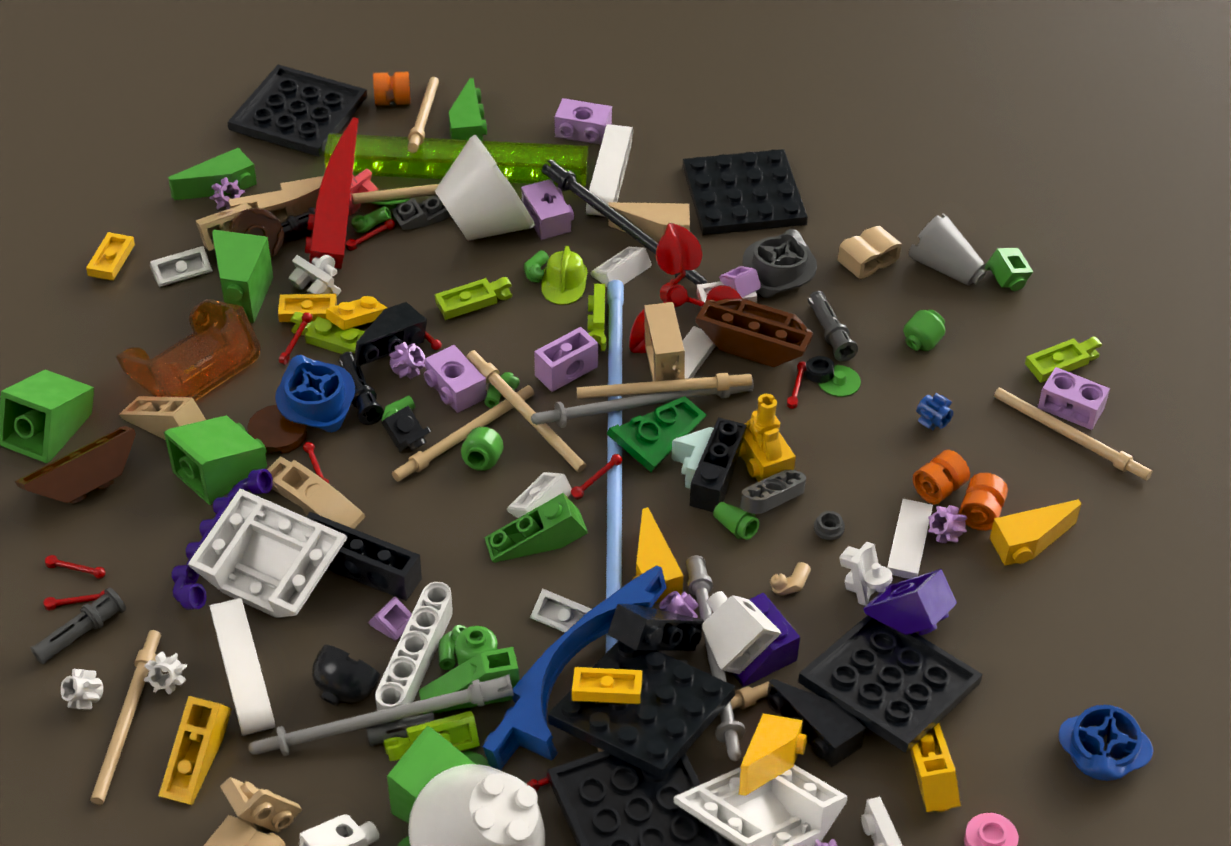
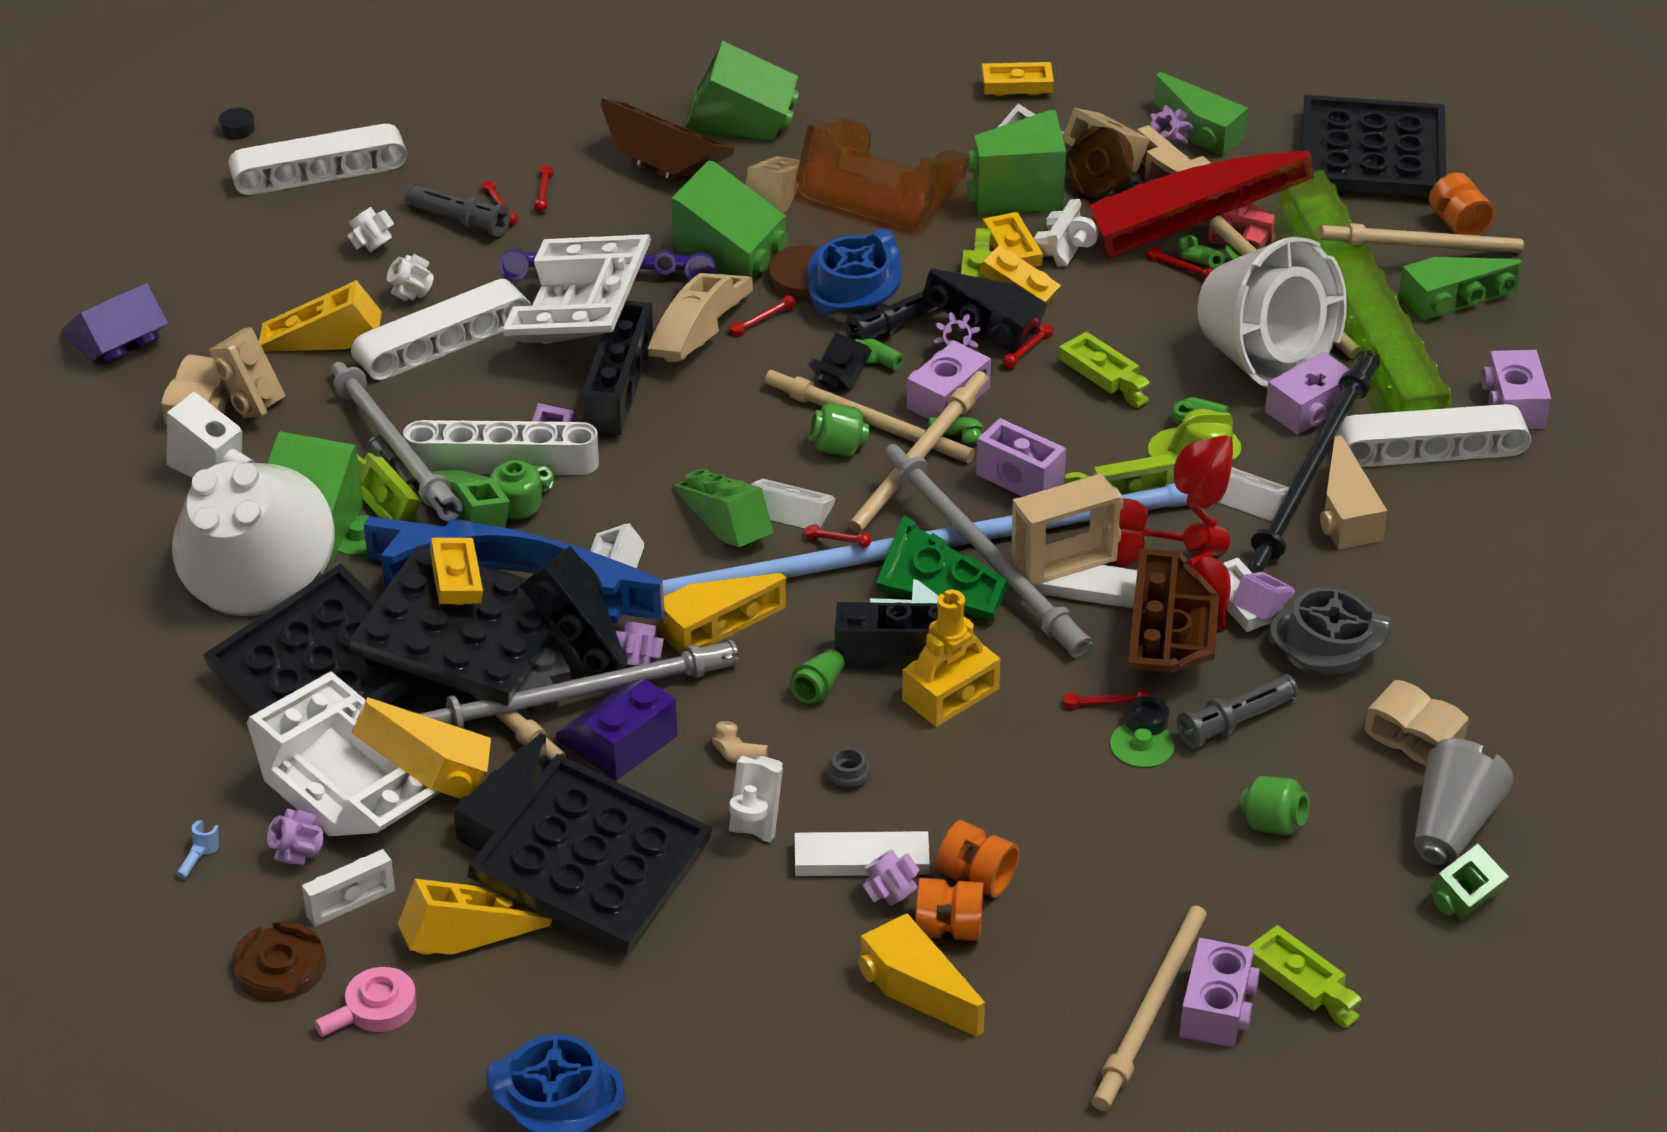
camera: 75 degrees right, 5 degrees down
(125, 717) = (348, 274): tan bar -> none
(285, 356) = (924, 248): red hinge -> none
(342, 677) = (443, 391): black cylinder -> none
(721, 382) = (1040, 599): tan bar -> none
(737, 631) = (600, 682): white torso -> none
(744, 192) = (1482, 580): black plate -> none
(772, 491) = (906, 718): dark grey beam -> none
(914, 603) = (720, 856): dark purple slope -> none
(934, 411) = (1107, 836): blue gear -> none

